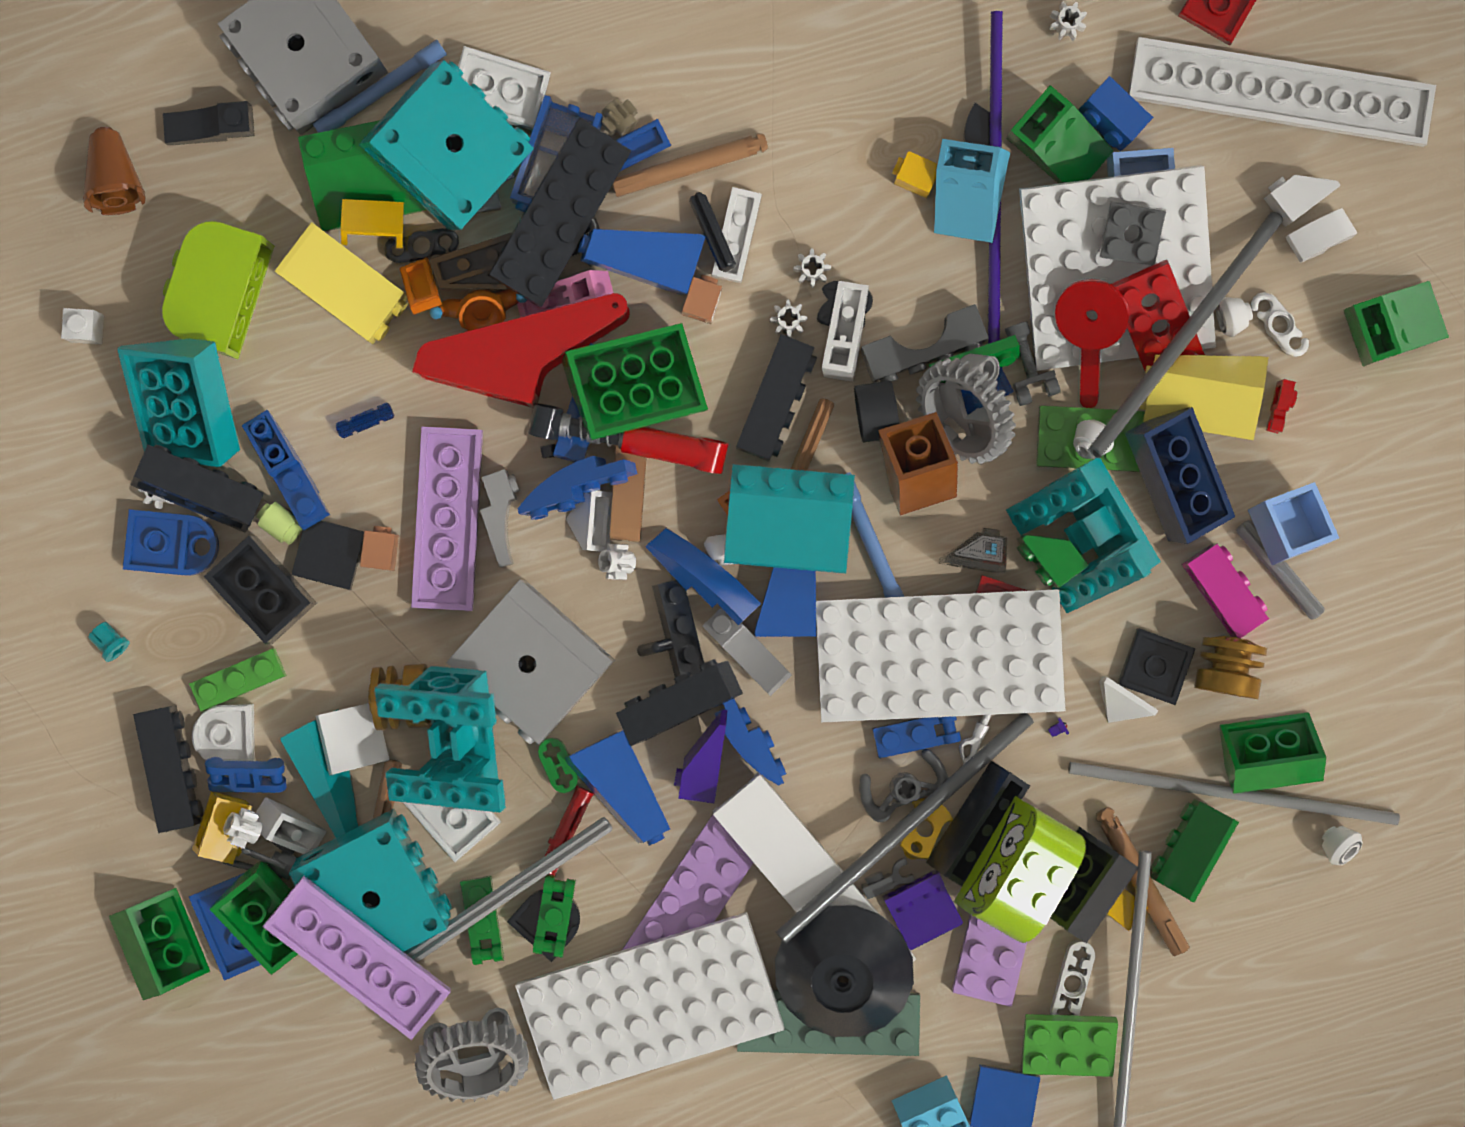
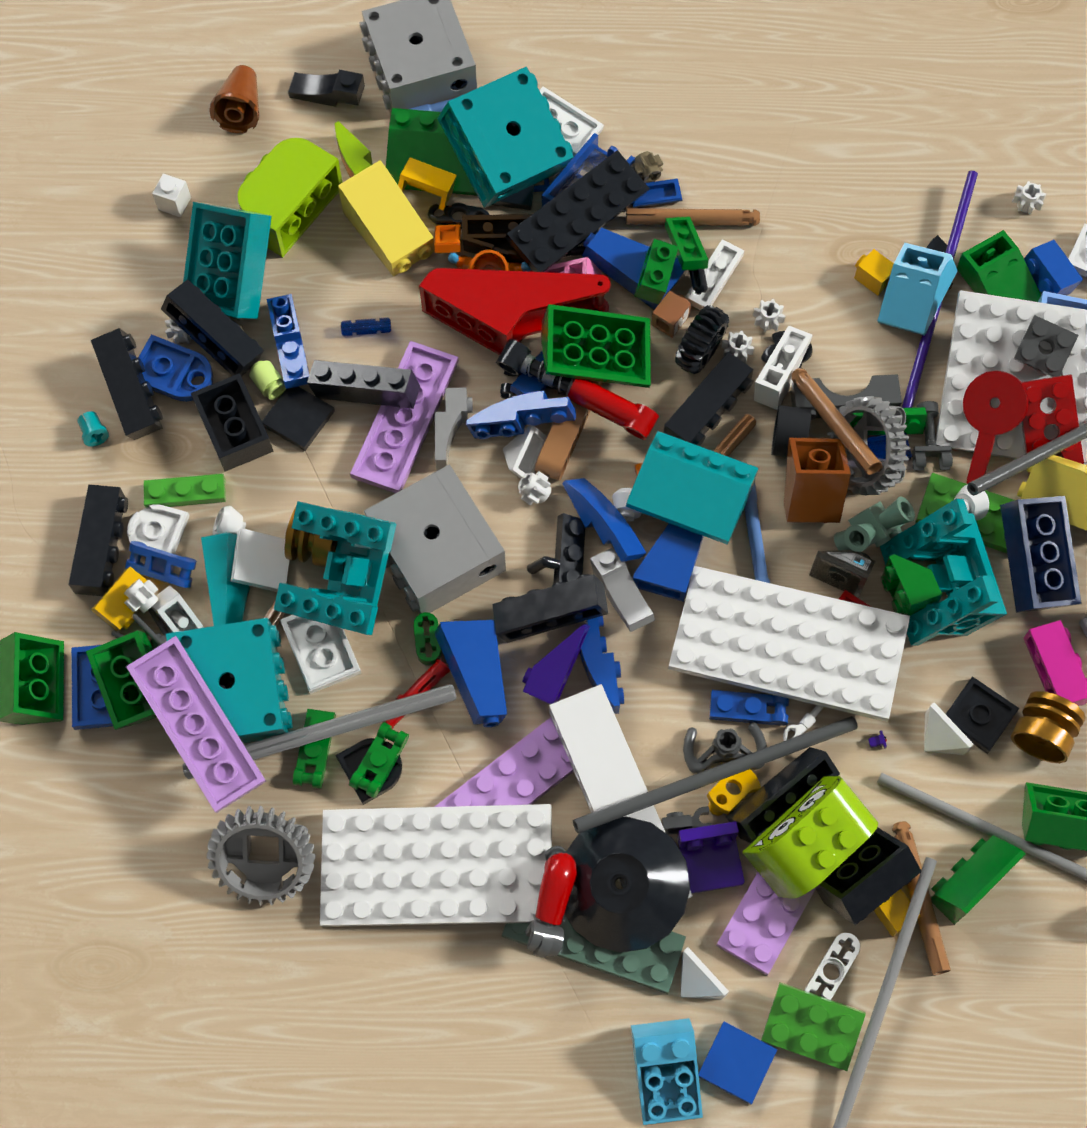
camera: 20 degrees right, 20 degrees down
(127, 582) = (127, 384): none -> black brick
(274, 208) = (352, 151): none -> lime slope
(301, 707) = (228, 521): none -> white cone
(379, 549) = (340, 423): nougat brick -> none
(389, 501) = (364, 384): none -> black brick
(673, 266) = (656, 271): none -> green brick
(694, 212) = (690, 249): none -> green plate
(747, 328) = (702, 339): none -> black gear
(780, 1016) = (556, 886): none -> red piece
(920, 391) = (836, 421): none -> medium nougat piece
(945, 1035) = (698, 980): none -> white slope
(993, 503) = (875, 525): none -> sand green brick

